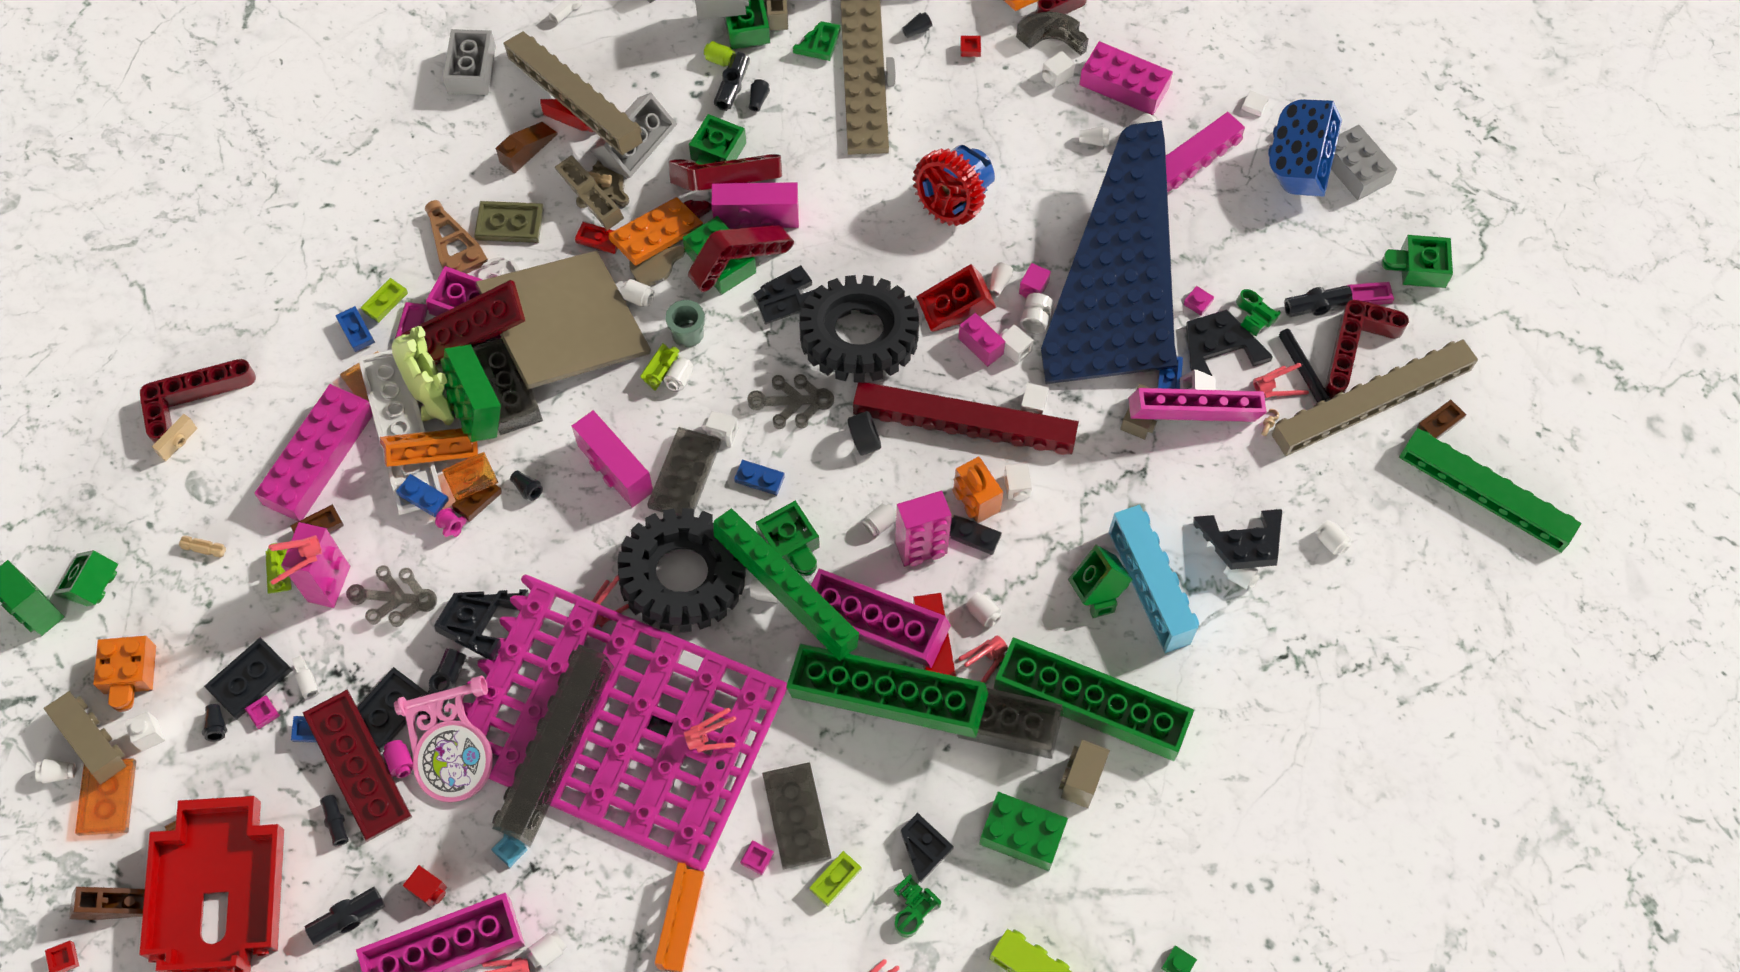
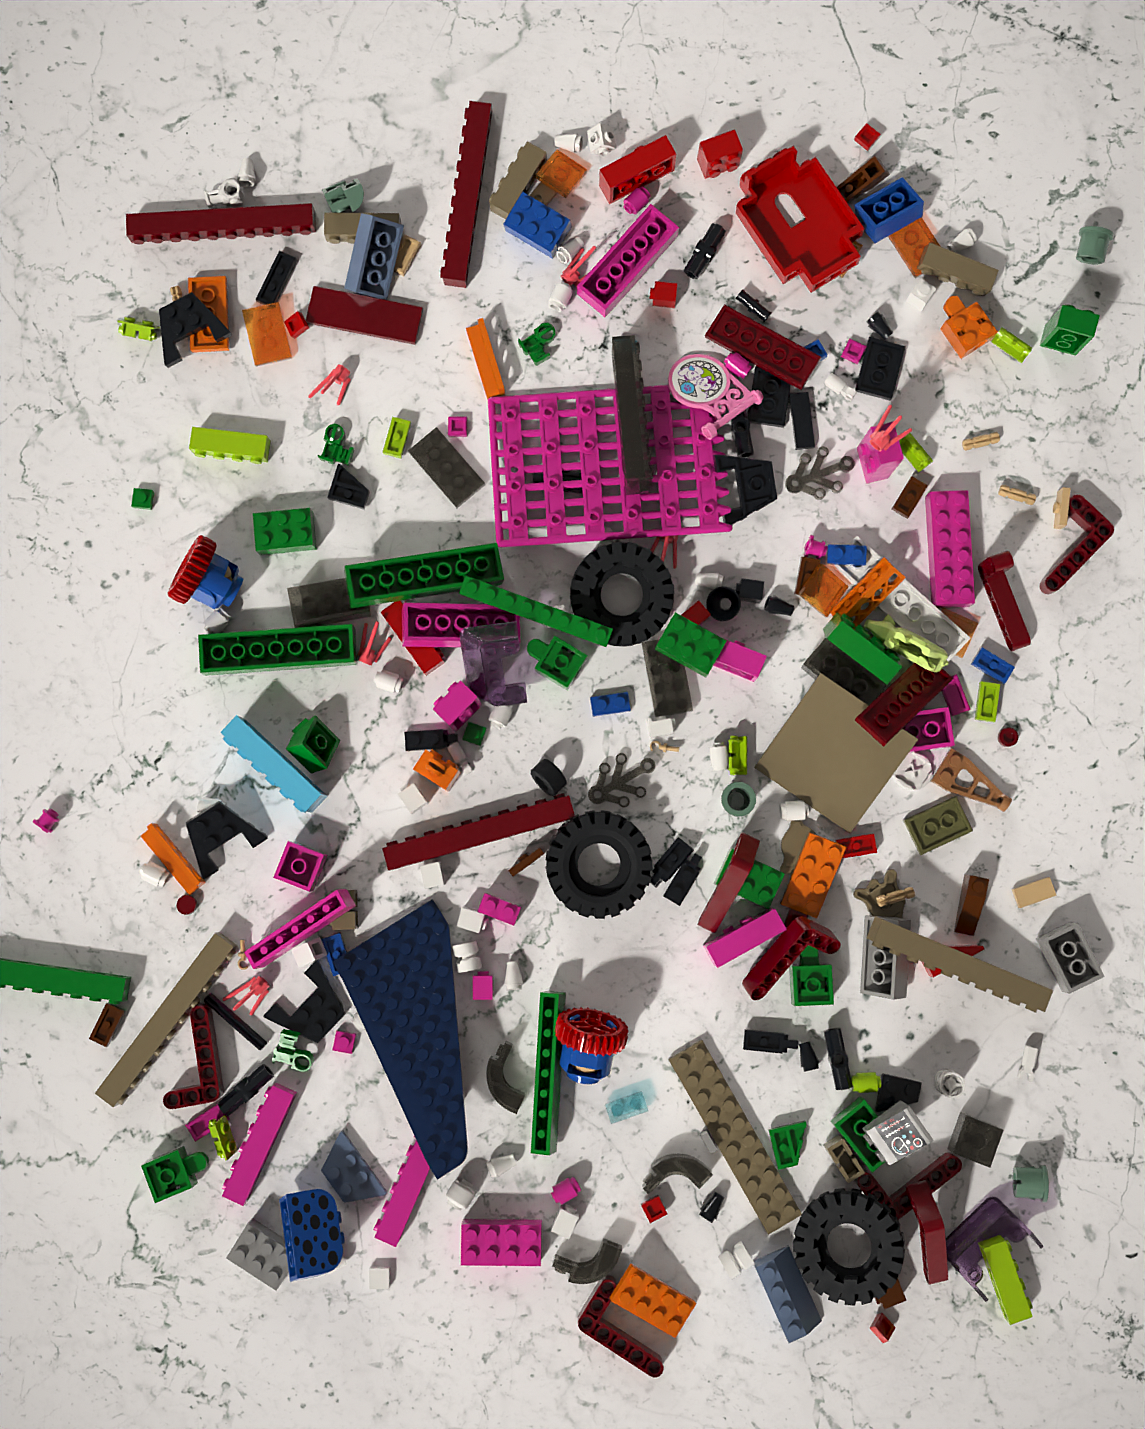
camera: 155 degrees right, 20 degrees up
(87, 578) = (1043, 374): green slope -> none
(90, 626) = (1011, 345): none -> lime hinge
(105, 844) = (889, 210): none -> blue brick
(208, 475) = (1017, 494): none -> tan axle
(290, 401) = (1002, 599): none -> dark red beam
(371, 663) = (801, 421): none -> black tile
(388, 263) = (1007, 737): none -> dark red tile
(462, 129) = (1034, 892): none -> tan tile
(544, 513) = (750, 590): none -> black brick
(579, 544) = (710, 580): none -> white cone
(583, 502) = (714, 600): none -> black piece
(589, 192) = (886, 878): dark tan slope -> none
(613, 907) = (535, 346): none -> green piece
(618, 516) = (697, 613): none -> red brick
(642, 465) = (690, 644): none -> green brick
(645, 19) = (949, 1083): none -> white wheel
(695, 37) = (896, 1089): none -> black wing
(697, 735) = (536, 473): coral plant -> none
(727, 409) = (665, 747): none -> tan hand
(787, 122) = (768, 1041): none -> black hinge
(860, 556) = (483, 665): none -> clear purple windscreen
(931, 369) = (525, 860): none -> reddish brown plate
(933, 68) = (677, 1165): none -> clear smoke arch
(949, 496) = (459, 757): none -> white bar
(950, 129) = (626, 1107): none -> clear light blue plate
(956, 299) = (538, 937): red slope -> none
(1008, 184) = (547, 1075): none -> green brick
(1044, 91) = (565, 1190): none -> dark pink brick
(1061, 188) = (501, 1091): none -> clear smoke arch
(1085, 772) = (259, 589): dark tan brick -> none
(1144, 816) = (205, 576): none -> piece
(1150, 768) = (217, 621): none -> white brick
(1169, 469) = (300, 866): none -> dark pink brick
(1244, 193) = (350, 1173): none -> sand blue wing
(1306, 545) = (172, 858): none -> orange fence
(1310, 495) = (186, 904): none -> dark red tile
(1324, 251) = (259, 1144): none -> dark pink brick
(1359, 270) = (225, 1144): none -> lime hinge
(1435, 647) = (47, 820): none -> dark pink brick

